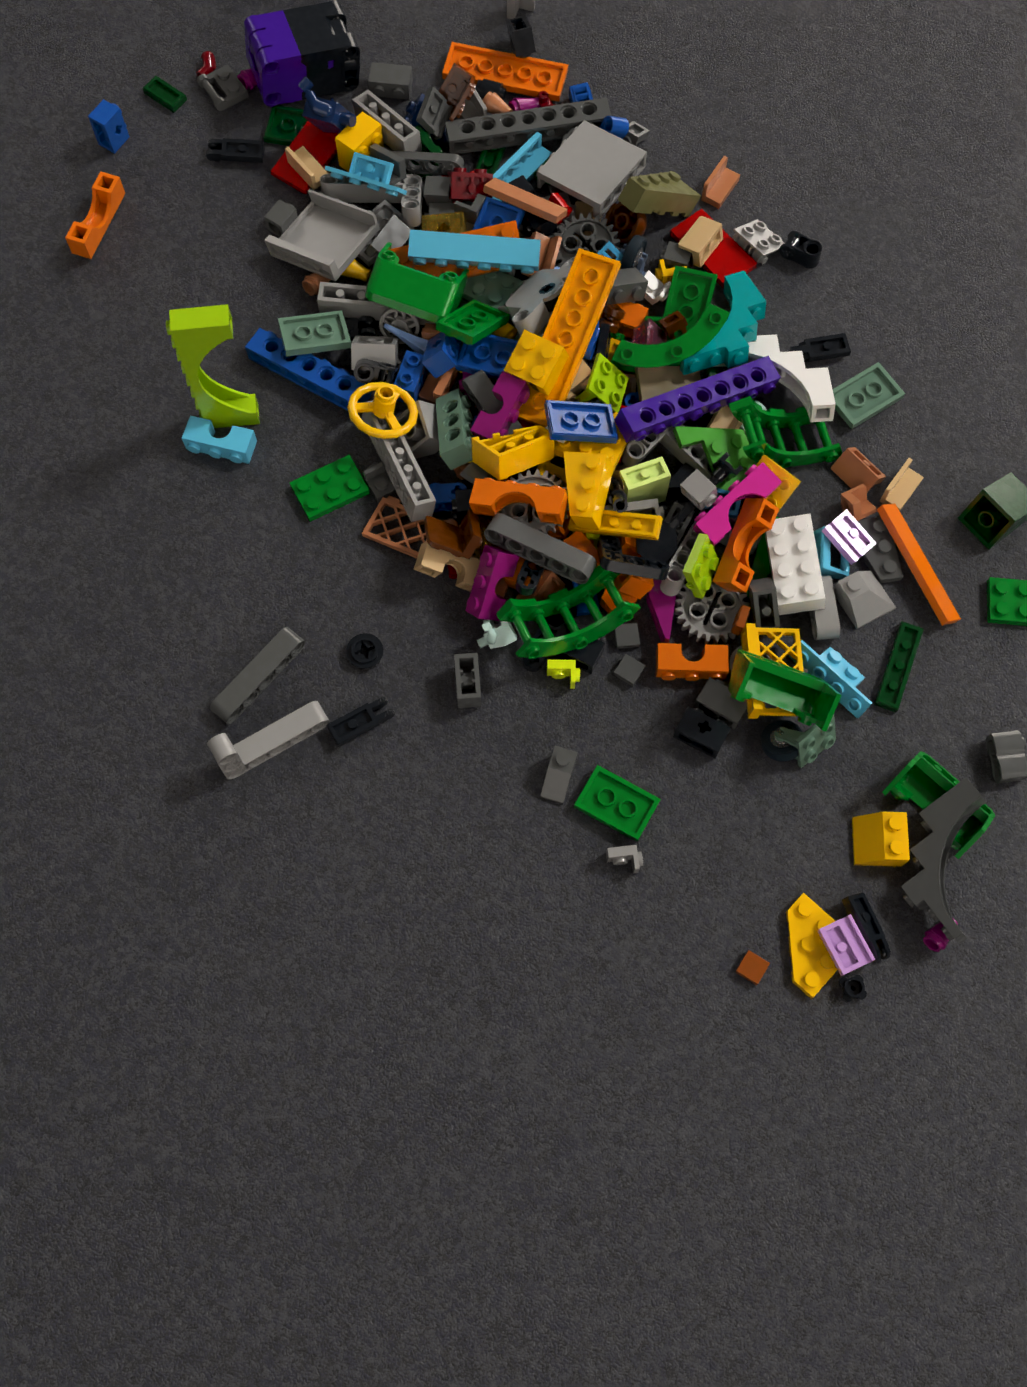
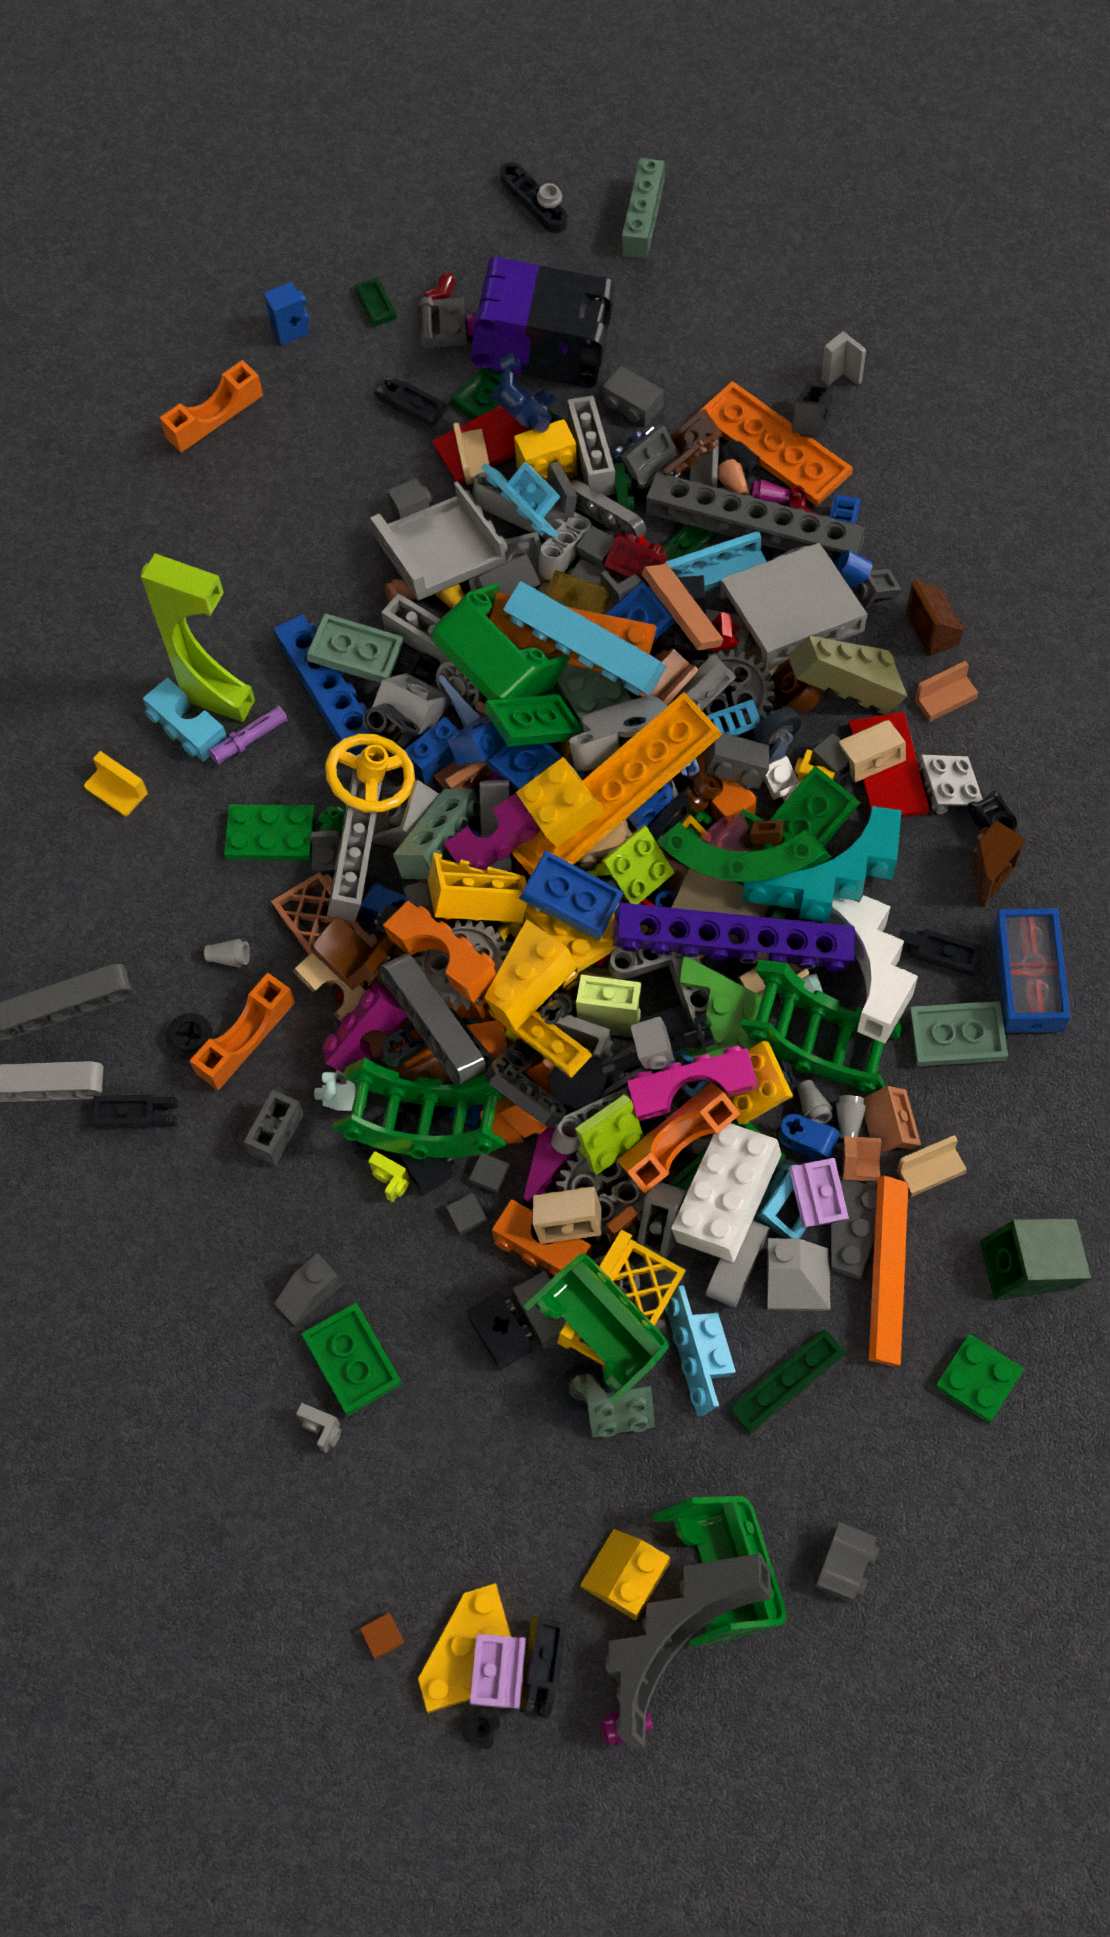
camera: 35 degrees right, 5 degrees down
(198, 508) = (115, 785): none -> yellow panel
(267, 436) = (238, 741): none -> medium lavender pin
(357, 581) = (229, 953): none -> light grey cone
(368, 457) = (333, 818): none -> green plant
(406, 617) = (224, 1055): none -> orange arch
(572, 239) = (708, 681): none -> light grey panel
(682, 139) = (933, 618): none -> reddish brown slope
(704, 632) = (567, 1215): none -> tan brick
(809, 486) = (813, 1103): none -> light grey cone
(820, 506) = (811, 1139): none -> blue piece
(821, 274) = (995, 859): none -> reddish brown slope
(832, 480) = (850, 1115): none -> light grey cone
(886, 332) = (1031, 970): none -> brick

